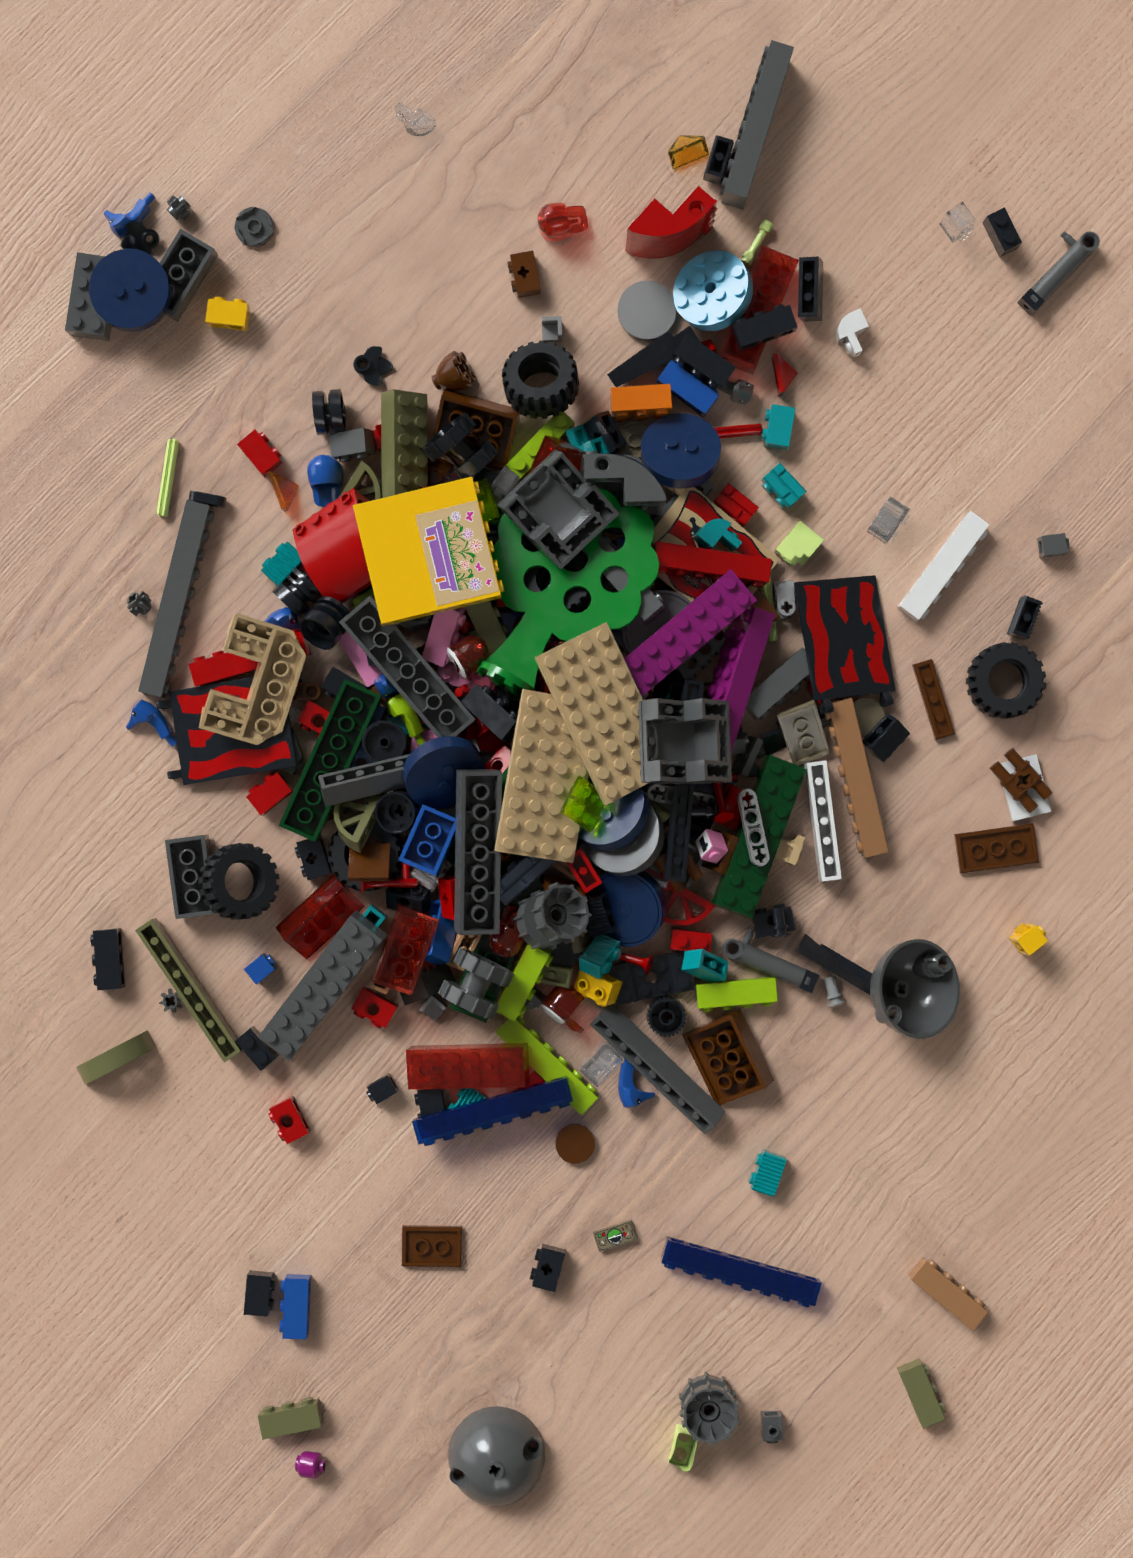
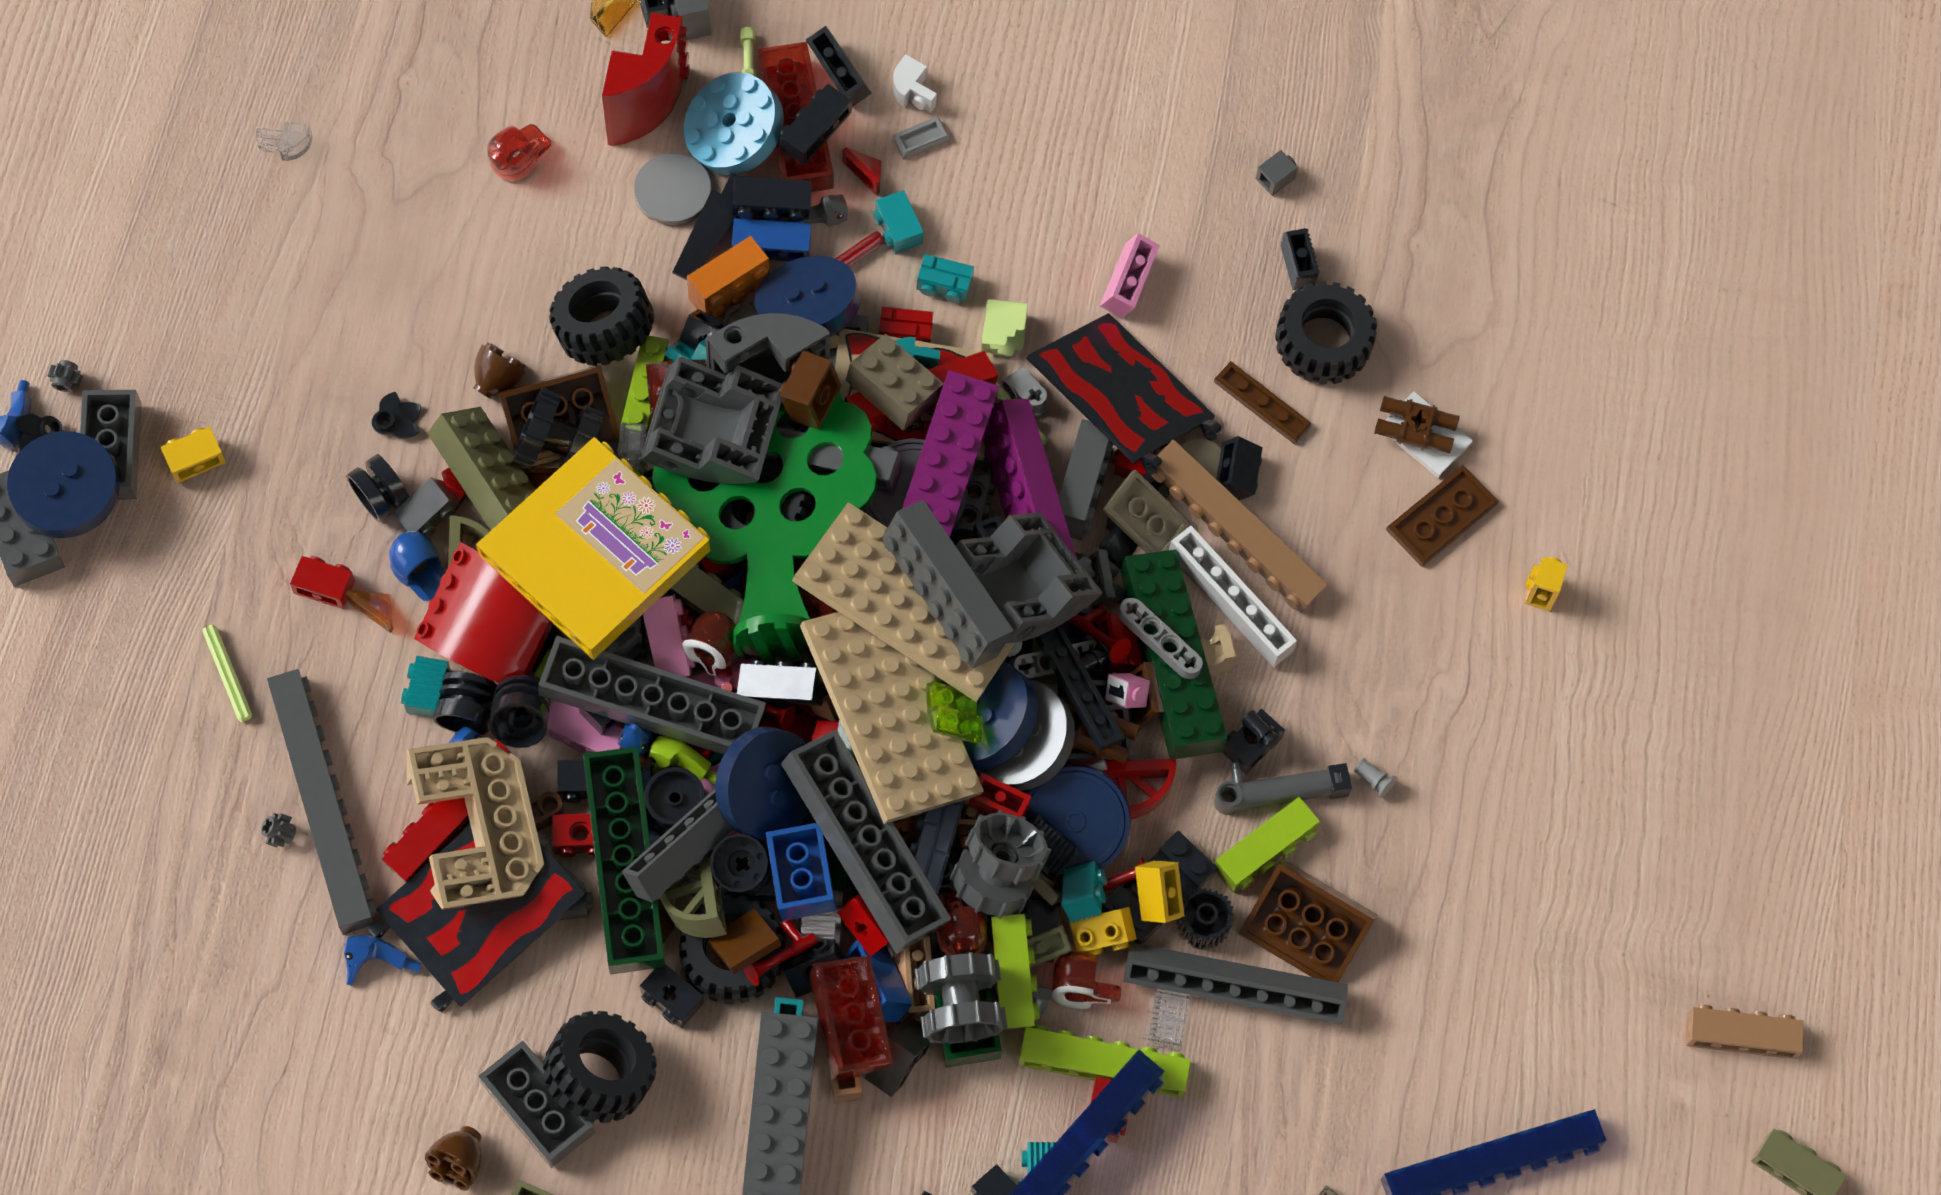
camera: 40 degrees left, 20 degrees down
(127, 878) = (456, 1158): none -> reddish brown piece
(208, 499) = (304, 662): black beam -> none
(254, 227) = (166, 350): dark grey tile -> none
(261, 968) = (688, 1163): blue brick -> none
(270, 793) = (571, 951): red brick -> none
(319, 917) = (721, 1059): clear red slope -> none
(368, 997) = (869, 1114): red brick -> none
(433, 1007) = (927, 1080): light grey panel -> none
(468, 1066) = (1013, 1116): clear red brick -> none
(524, 262) = (511, 226): reddish brown brick -> none
(552, 329) = (577, 260): light grey panel -> none
(575, 1143) = (1199, 1136): reddish brown tile -> none
(628, 1093) = (1222, 1035): blue animal -> none
(629, 722) = (947, 584): none -> dark grey brick
(631, 528) = (810, 390): none -> reddish brown brick
(645, 987) = (1159, 891): none -> yellow brick
(690, 940) = (1179, 814): red brick -> none
(693, 551) = (894, 382): none -> dark tan brick
(705, 965) = (1210, 830): teal brick -> none
(768, 1172) = (1444, 1026): teal brick -> none
(833, 372) = (920, 137): none -> light grey tile
(835, 963) = (1360, 745): black wedge -> none
(888, 520) = (1083, 247): clear brick -> none
(904, 560) = (1129, 275): none -> bright pink brick
(910, 997) = (1459, 721): dark grey piece -> none
(943, 565) = (1175, 260): white brick -> none

